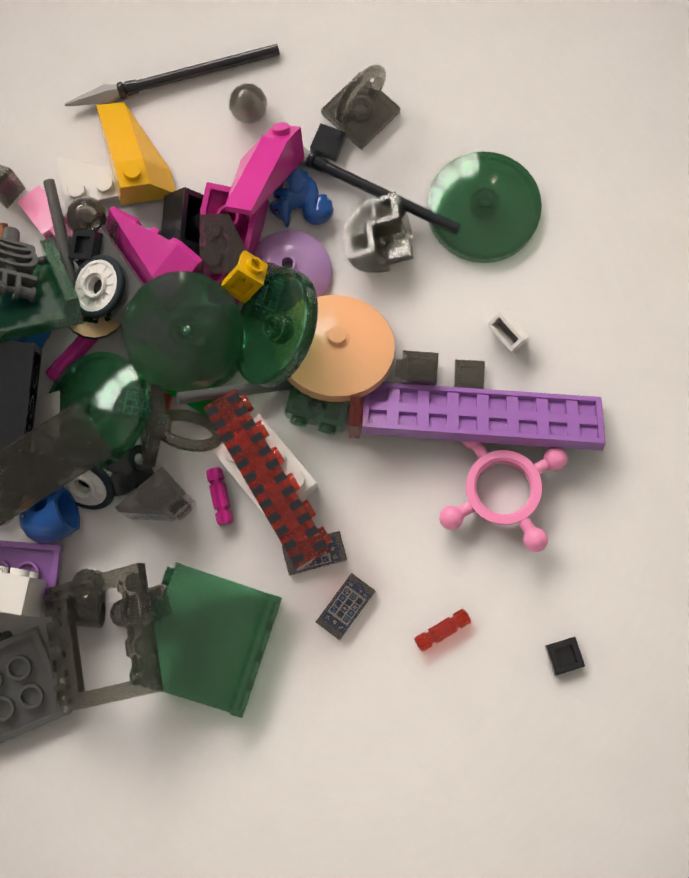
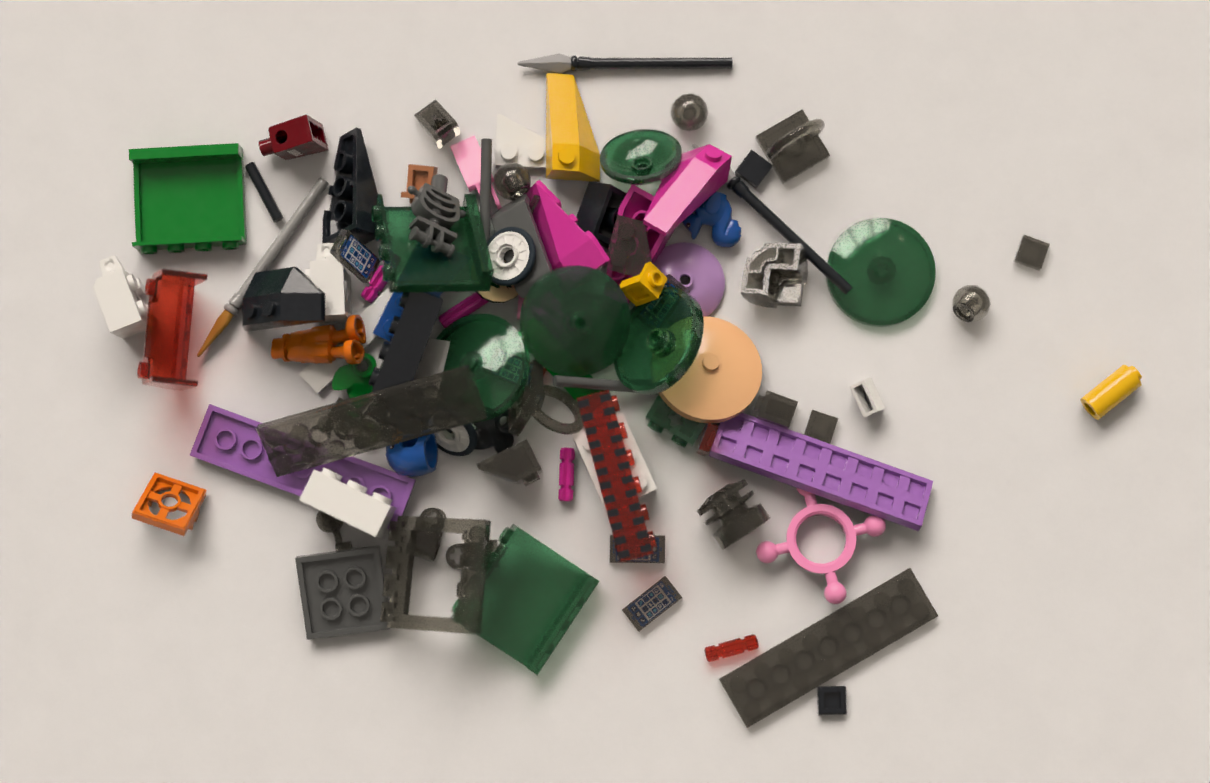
camera: 10 degrees right, 5 degrees up
(85, 245) = (506, 213): black tile -> none
(210, 157) = (641, 157): none -> clear green dish
(403, 486) = (733, 514): none -> clear smoke wheel
(543, 601) = (828, 647): none -> clear smoke plate
(586, 208) = (971, 303): none -> clear smoke piece
(628, 147) = (1031, 252): none -> clear smoke tile

